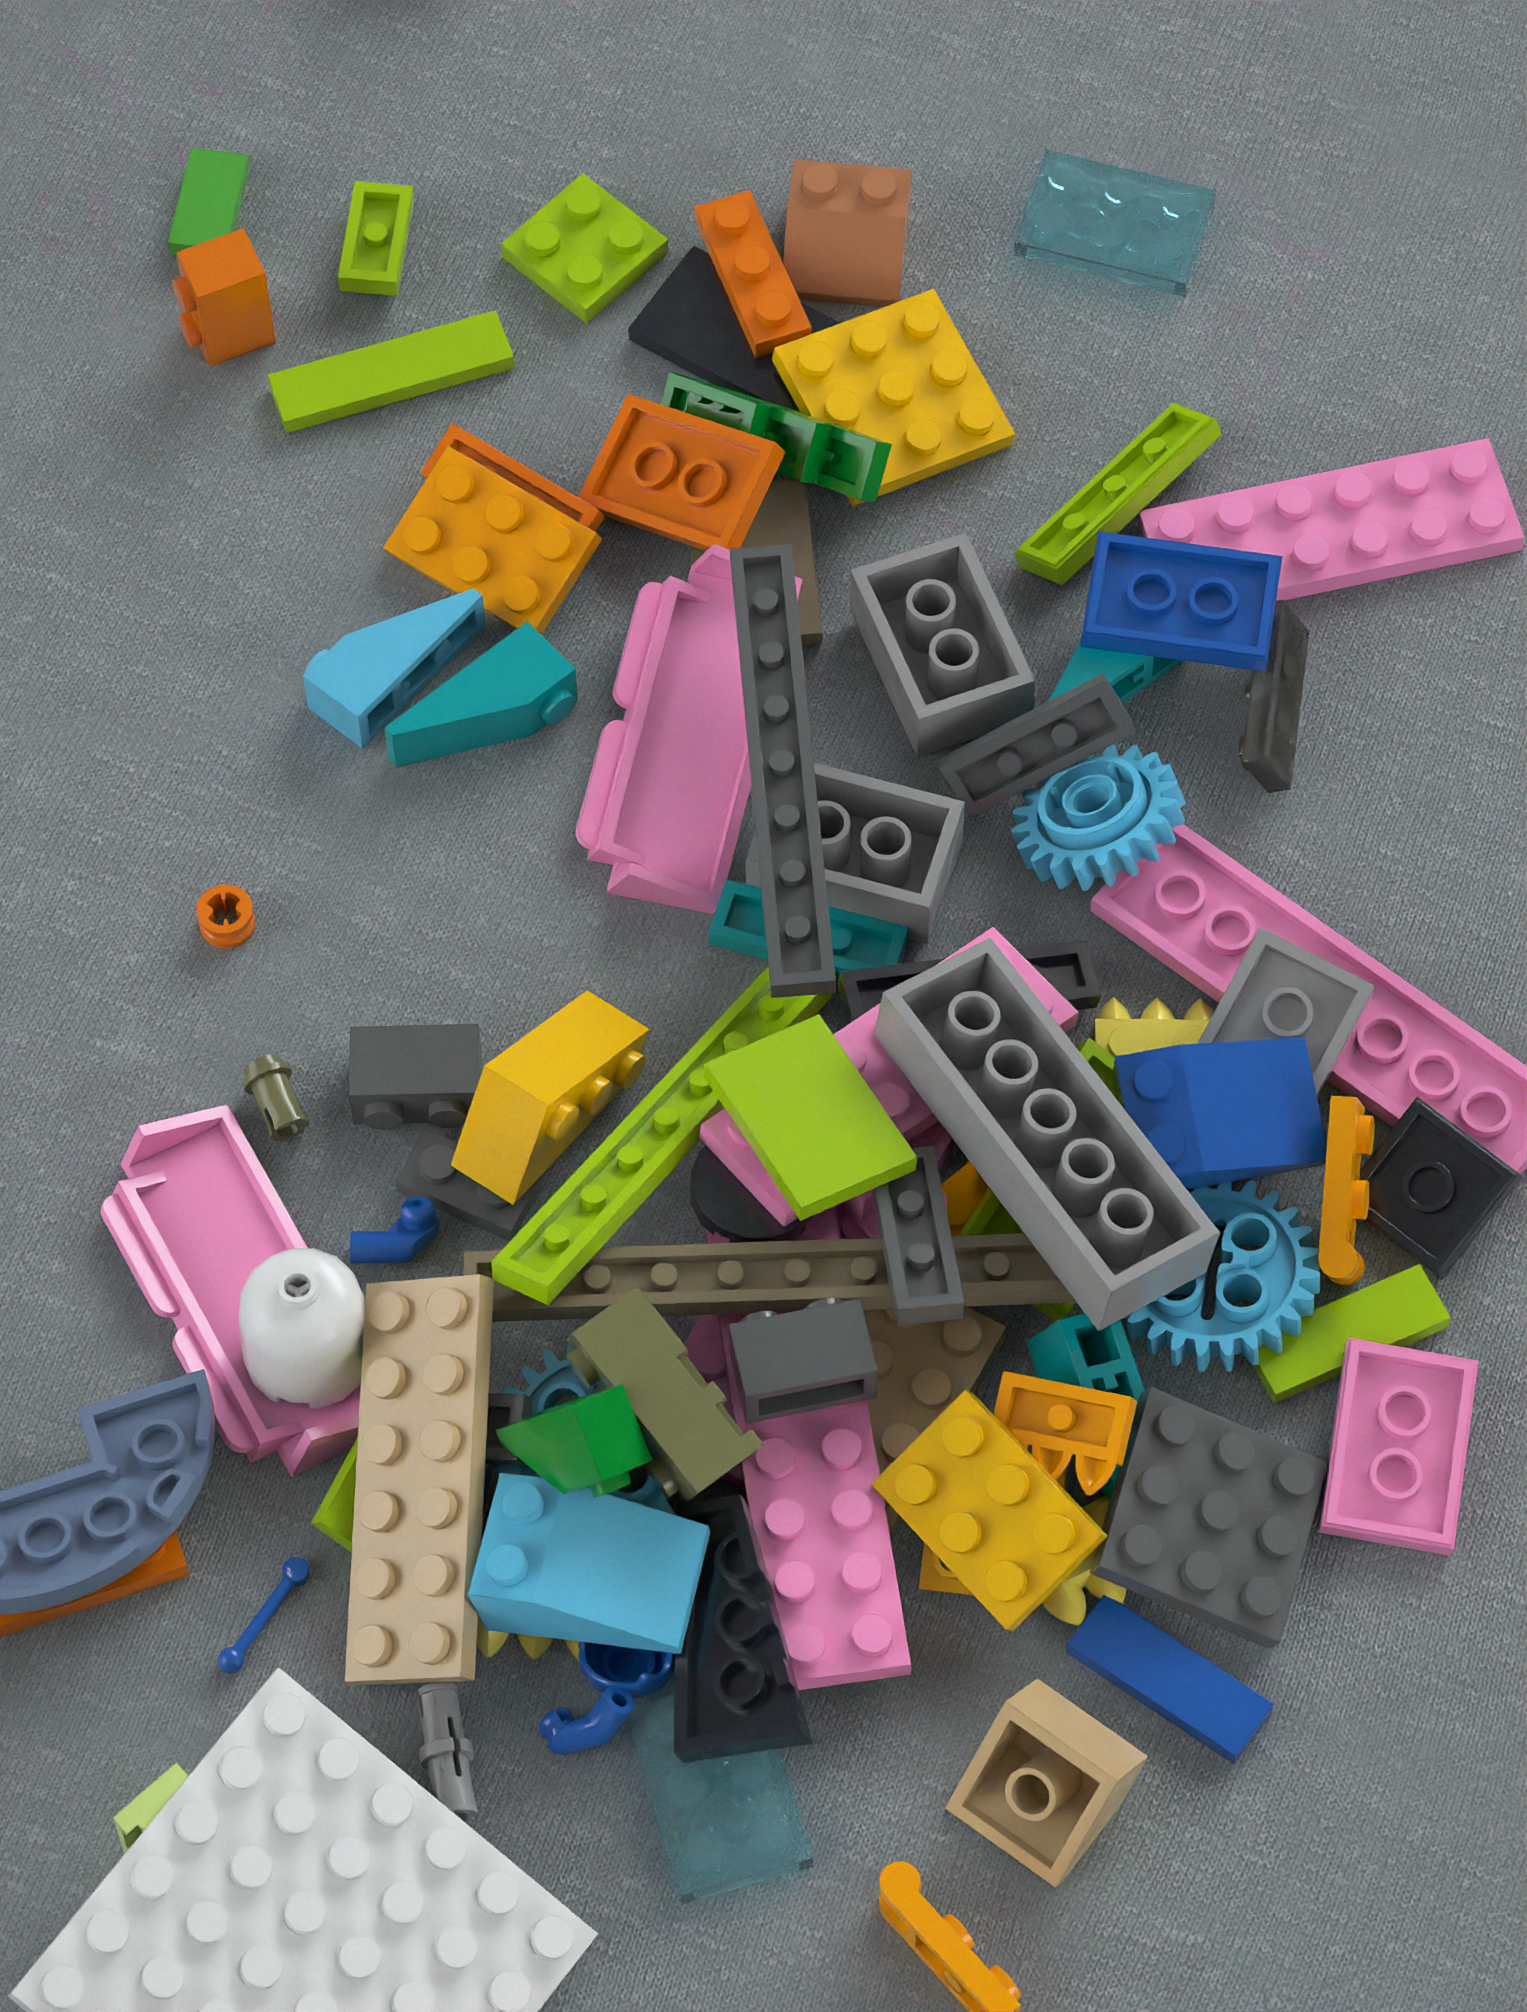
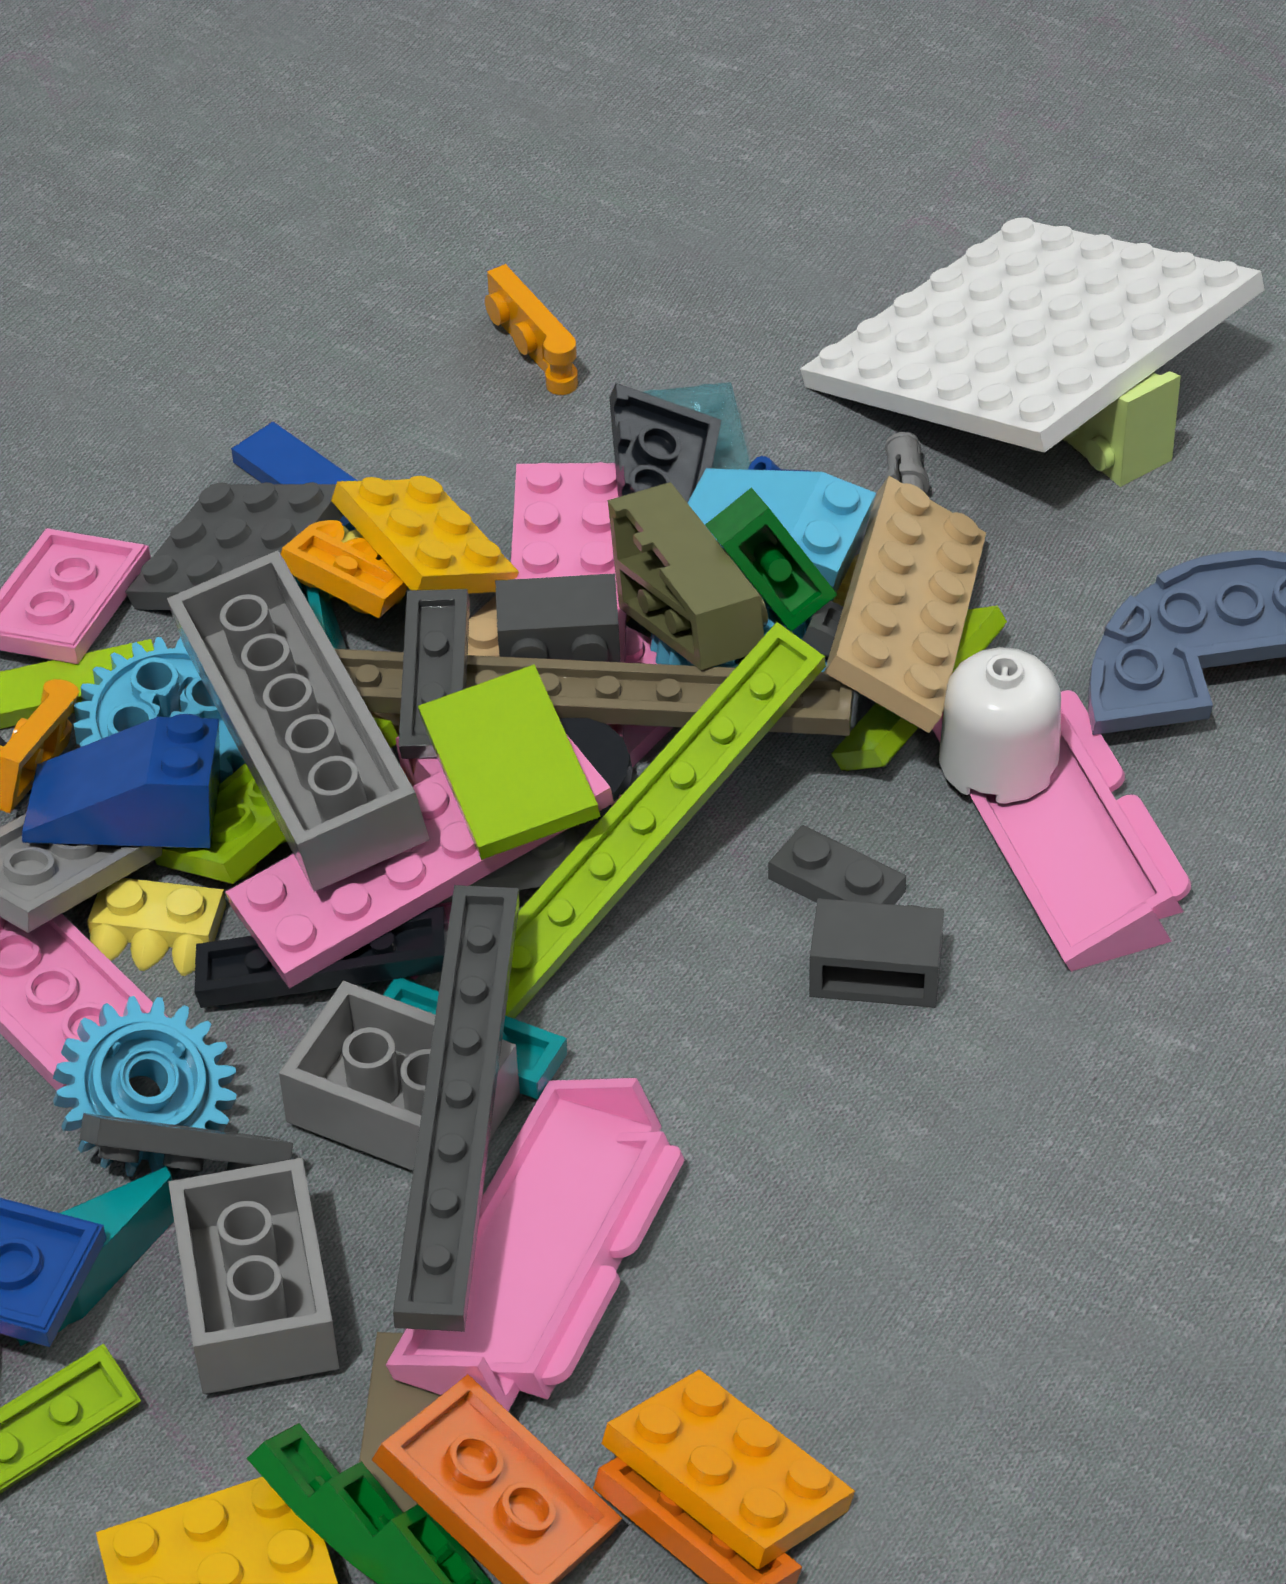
camera: 170 degrees left, 15 degrees down
(225, 897) = (1058, 1149): orange bush -> none
(270, 1084) = (1022, 968): olive pin -> none
(295, 1574) = (1023, 618): blue hinge -> none
(387, 664) = (860, 1349): medium azure slope -> none
(402, 1241) = (906, 835): blue arm -> none
(489, 702) = (757, 1293): teal slope -> none
(547, 1093) = (741, 892): yellow wedge -> none
(1045, 1781) = (421, 416): tan slope -> none

